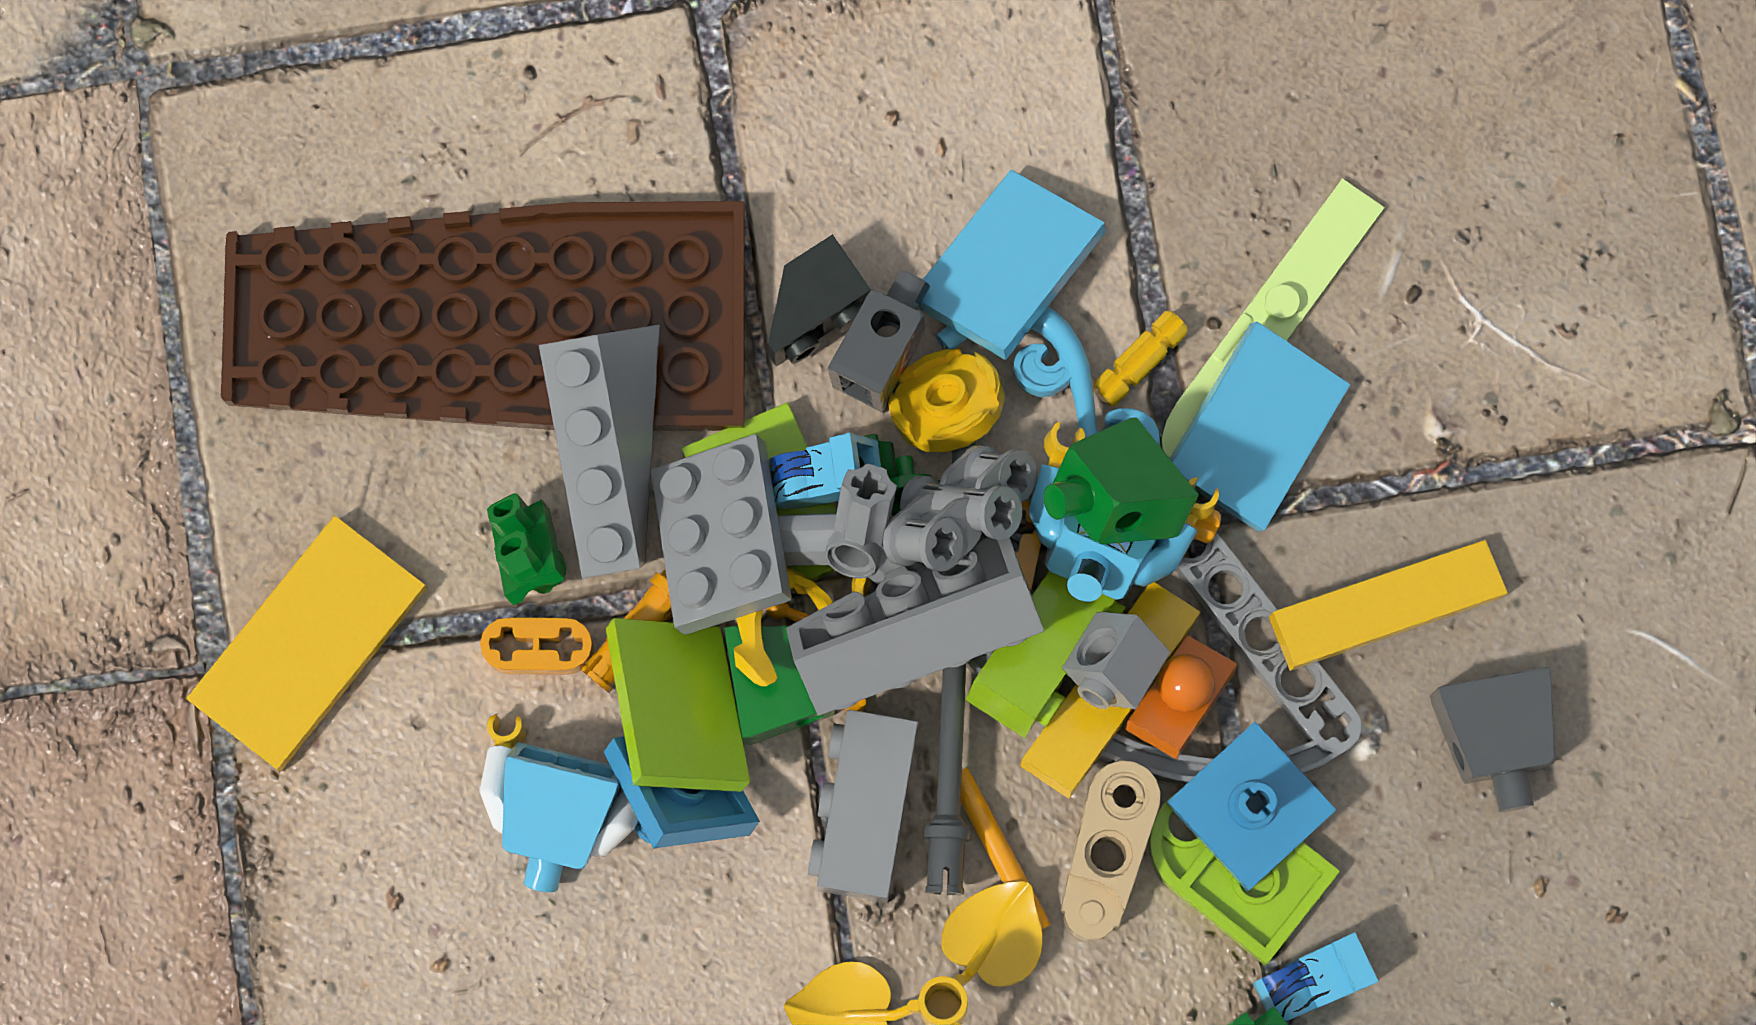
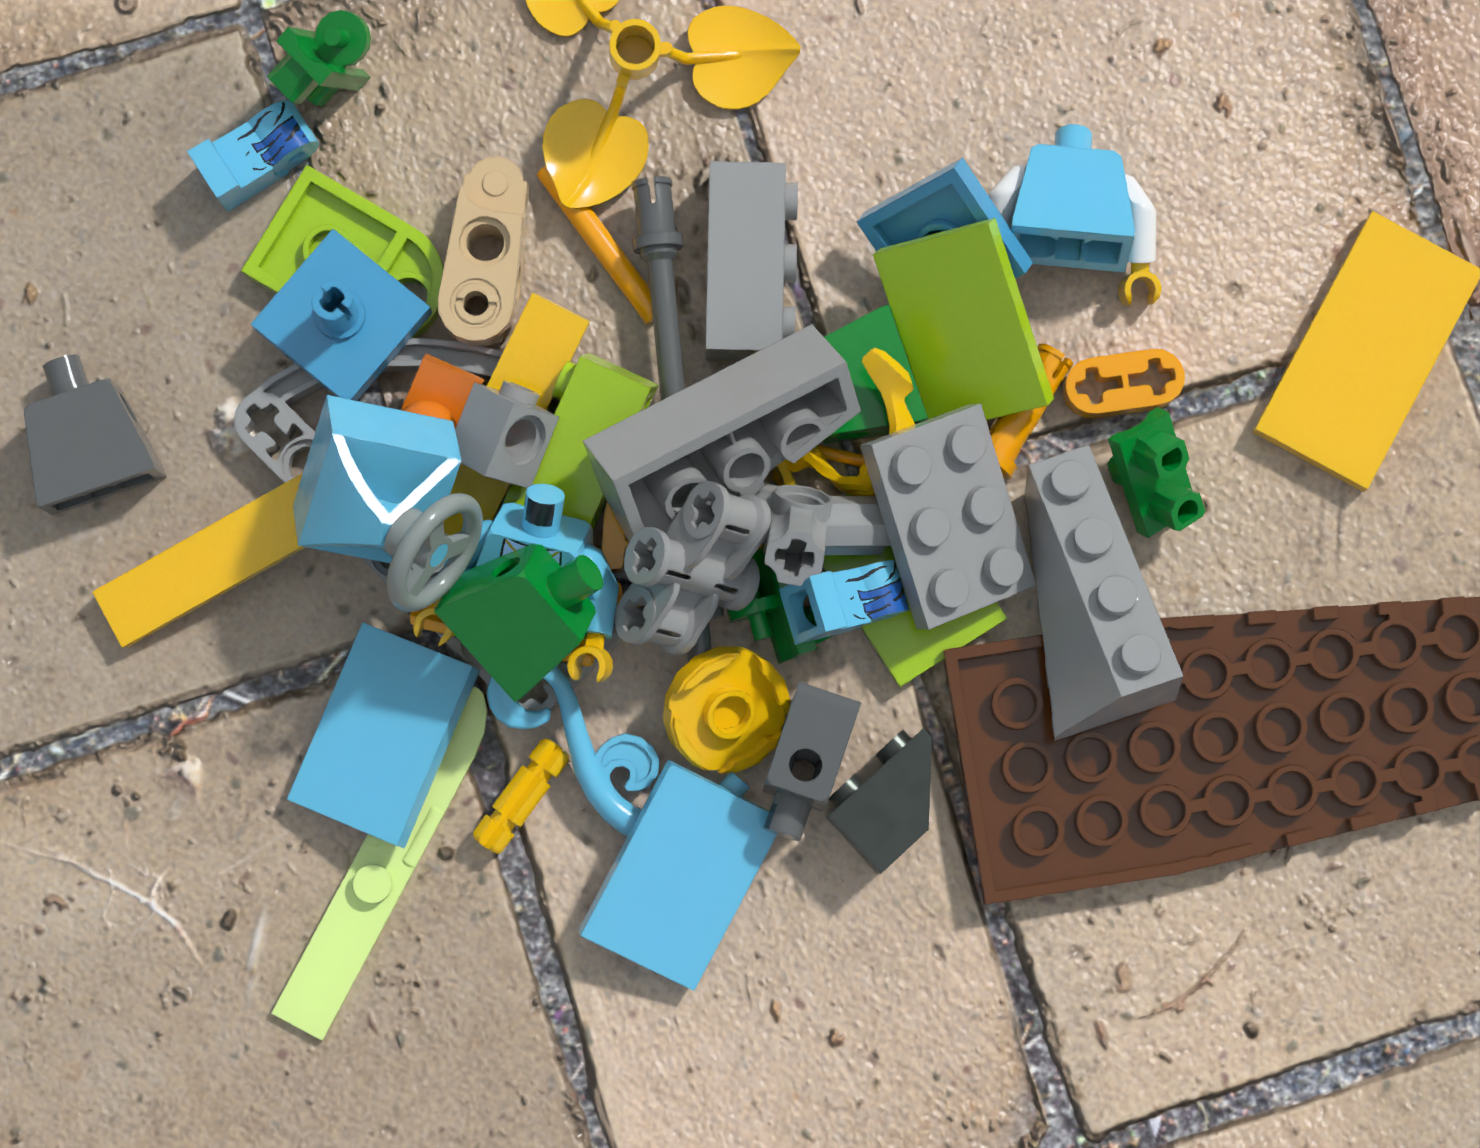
camera: 170 degrees right, 5 degrees up
(1236, 615) = (381, 494): none -> medium azure piece

